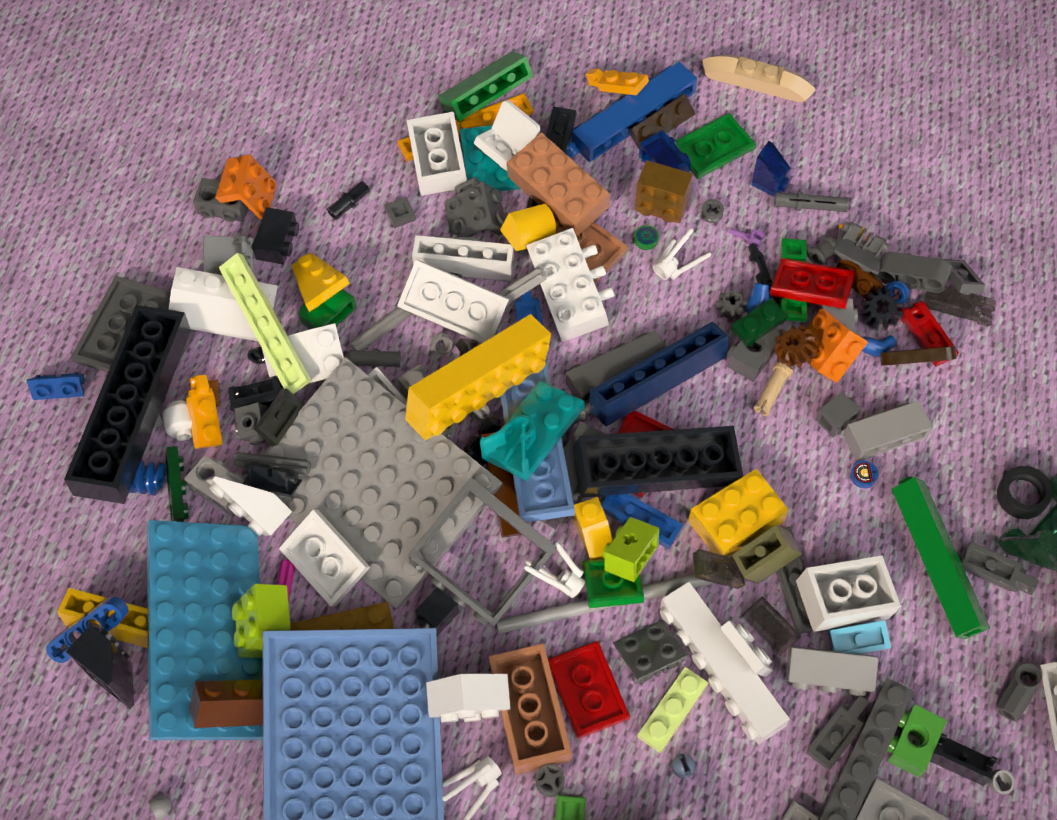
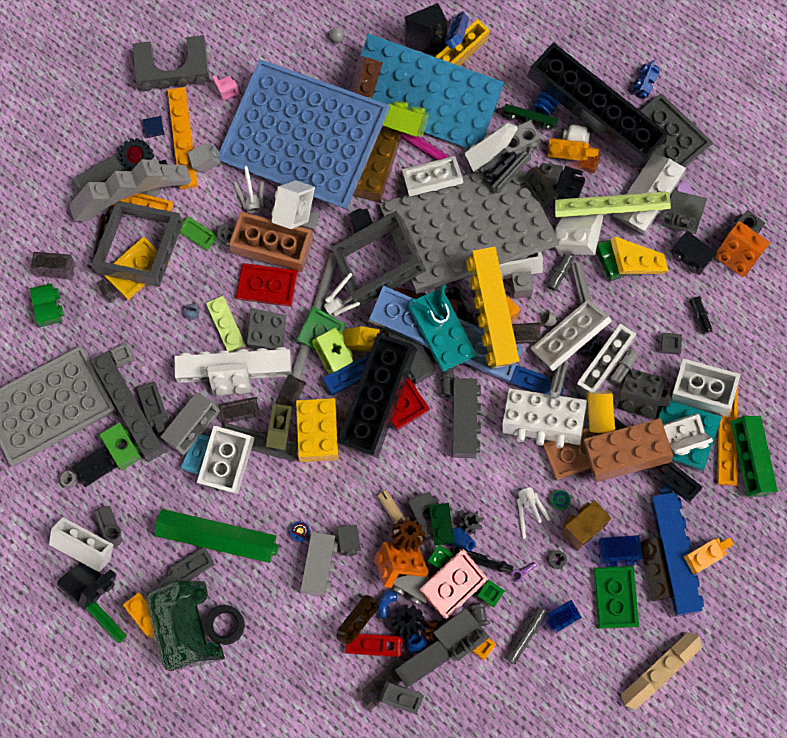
camera: 120 degrees right, 10 degrees up
(658, 374) = (441, 436): dark blue brick -> none

